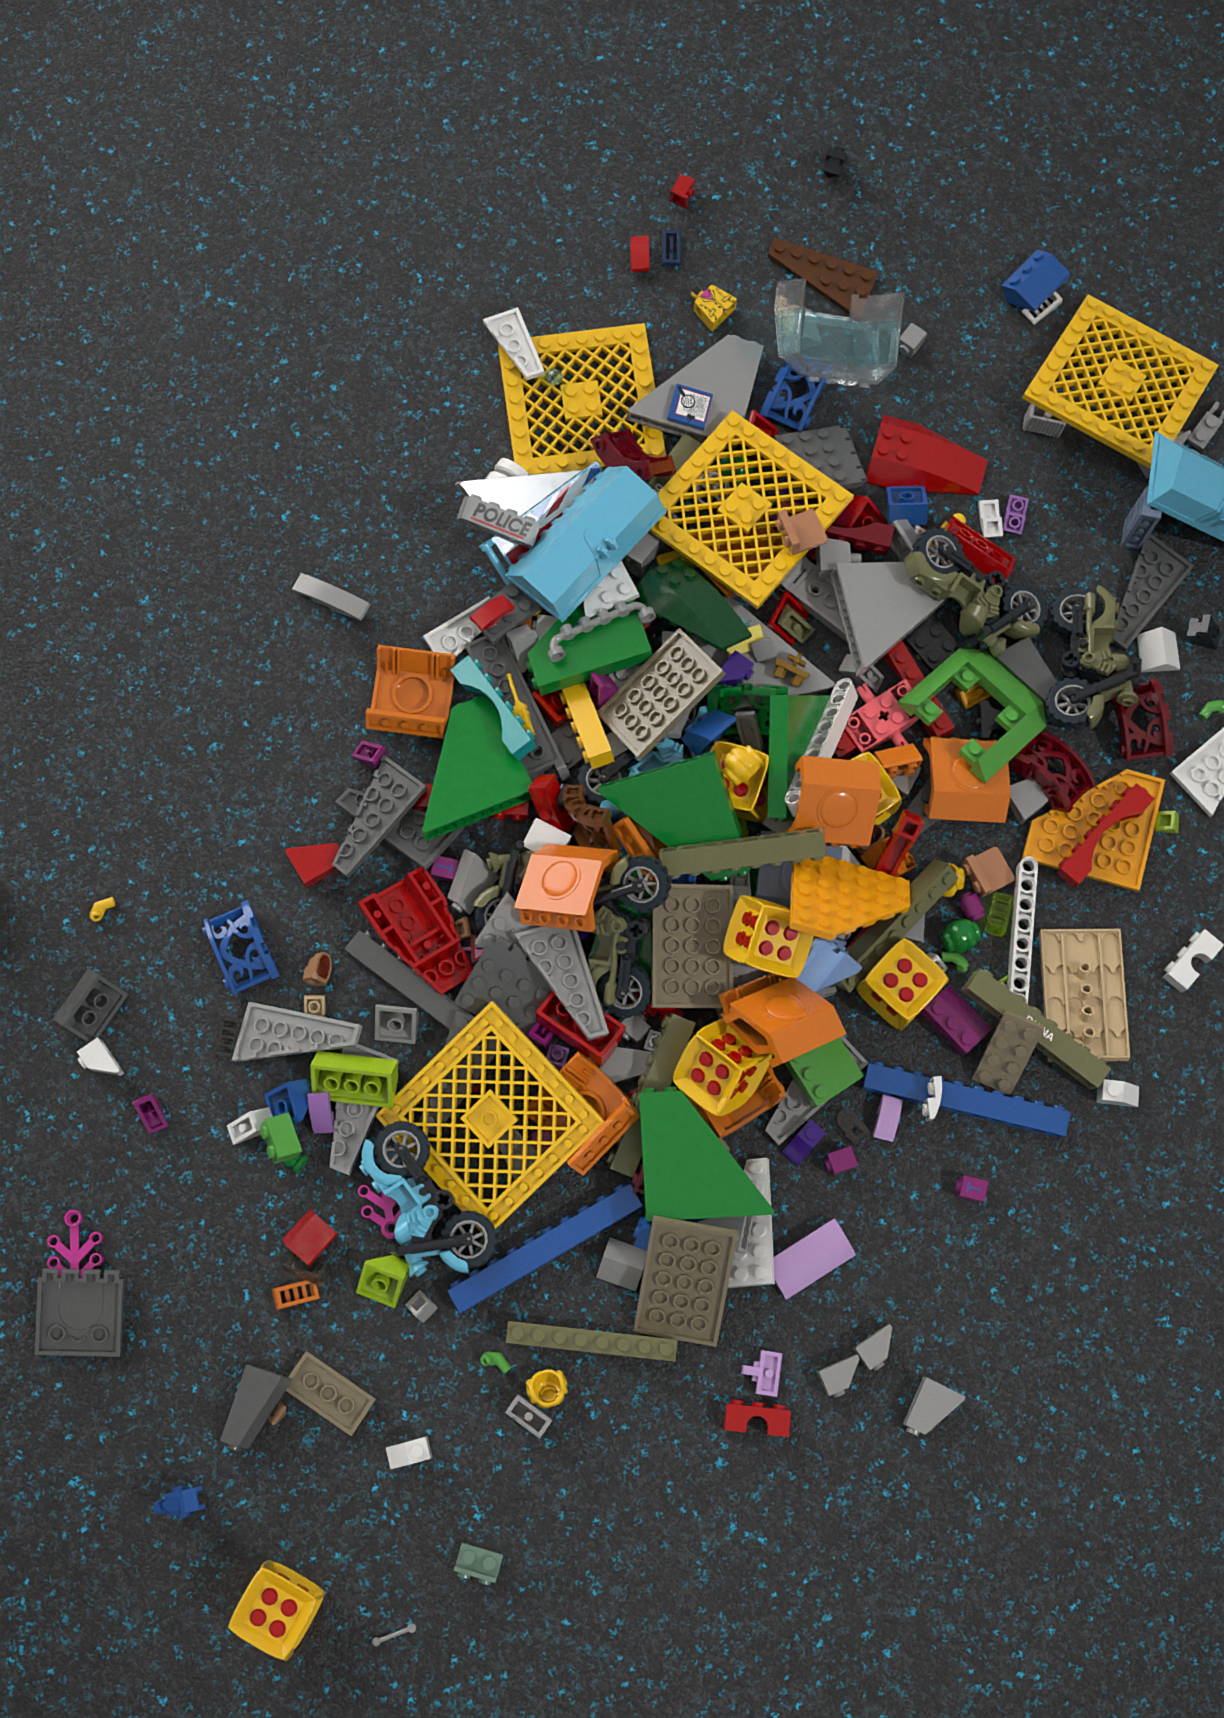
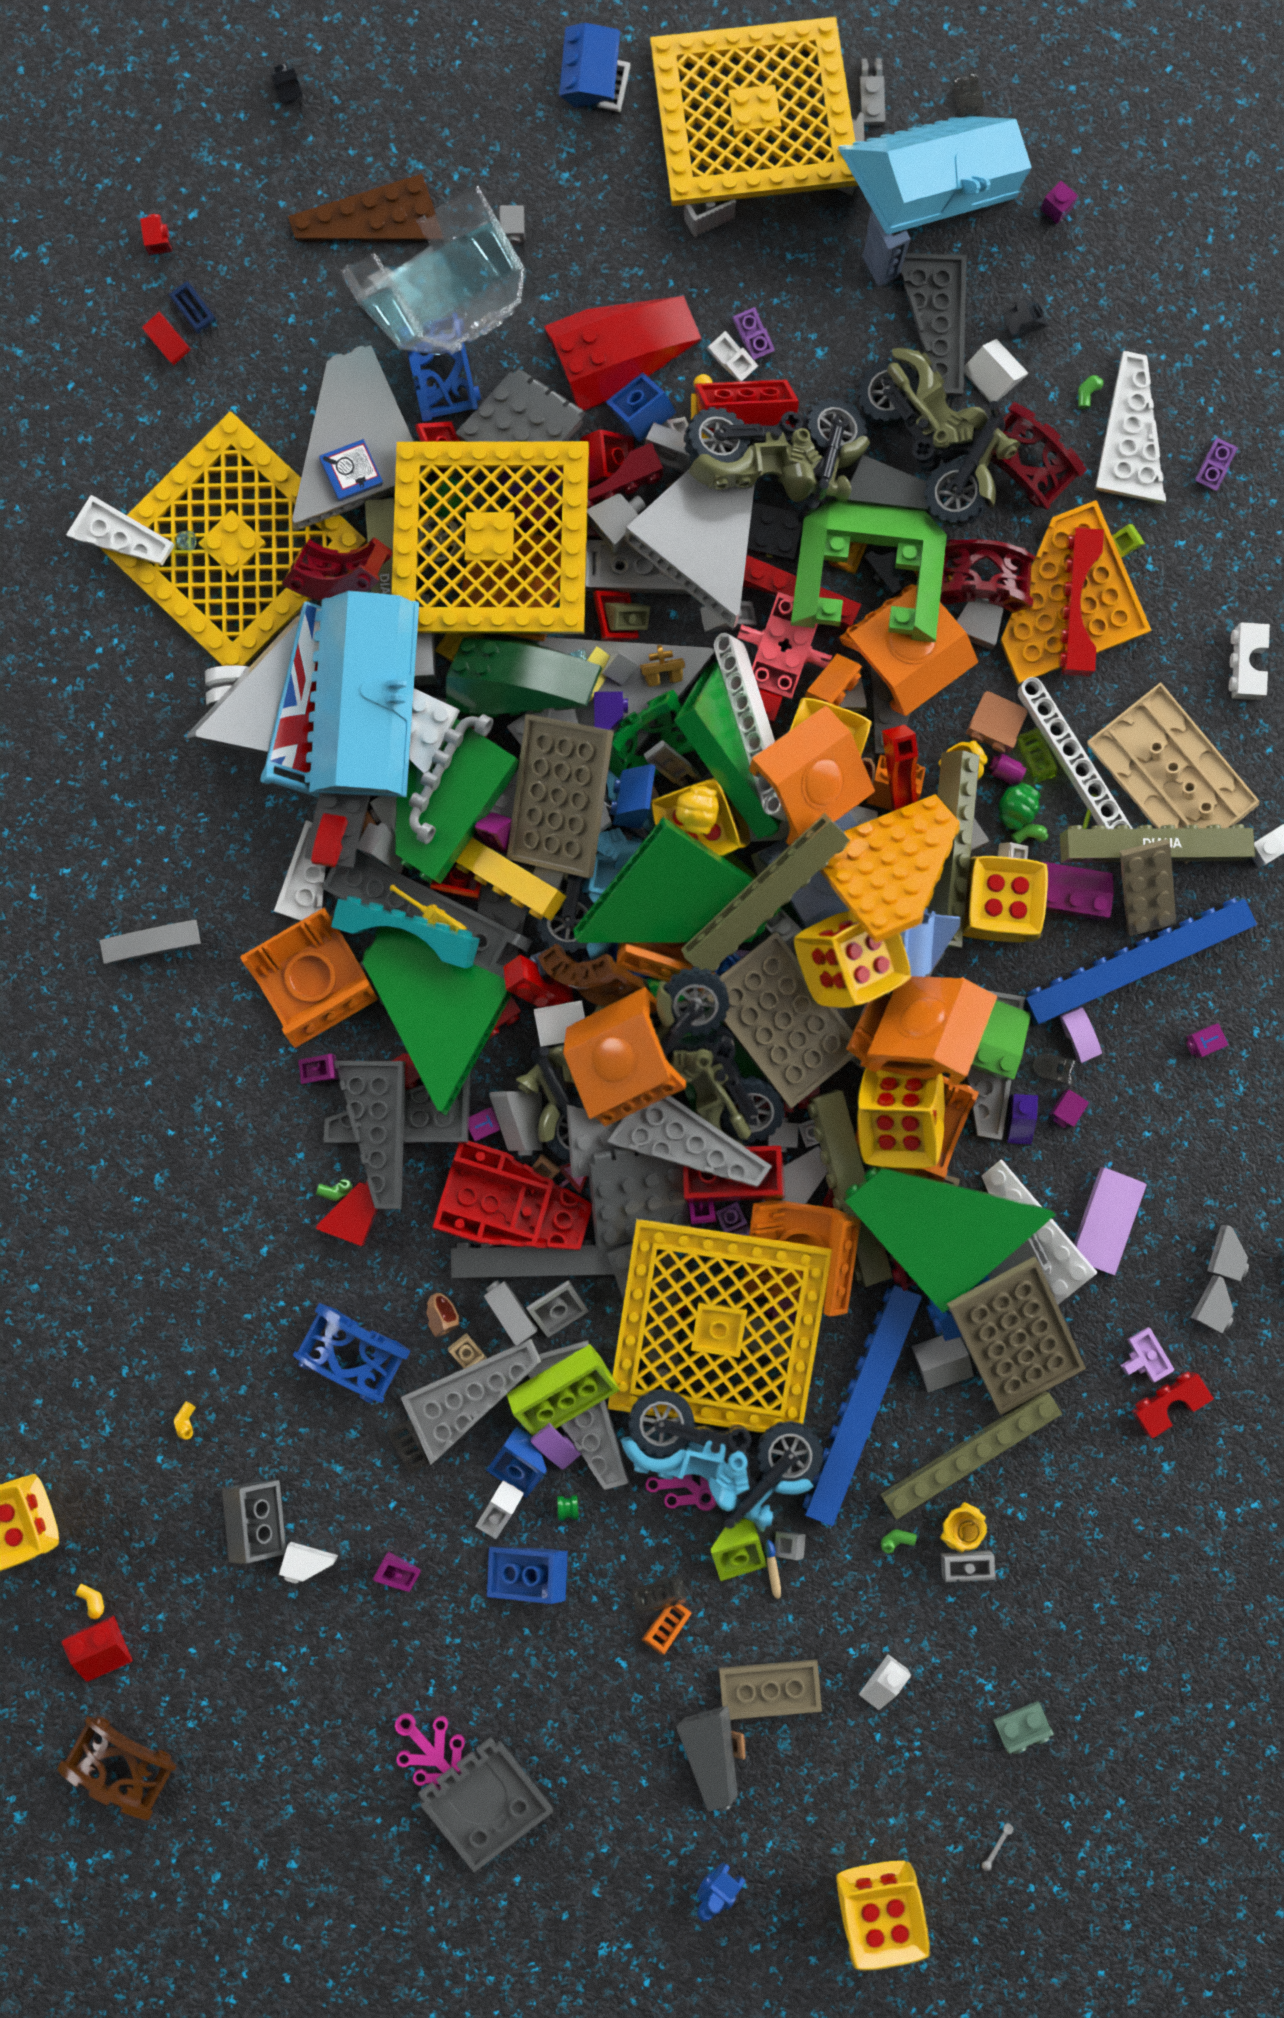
camera: 40 degrees left, 10 degrees up
(234, 1183) = (527, 1574): none -> blue slope
(280, 1138) = (540, 1502): bright green brick -> none
(309, 1237) = (638, 1567): red slope -> none
(316, 839) = (336, 1192): none -> bright green arm
(364, 1001) = (510, 1312): none -> light grey slope
(404, 1299) = (770, 1552): none -> tan piece
(498, 521) = (261, 743): light grey brick -> none
(713, 305) = (284, 339): yellow torso -> none
(800, 531) = (567, 521): nougat bracket -> none
(932, 1104) = (1116, 993): white slope -> none

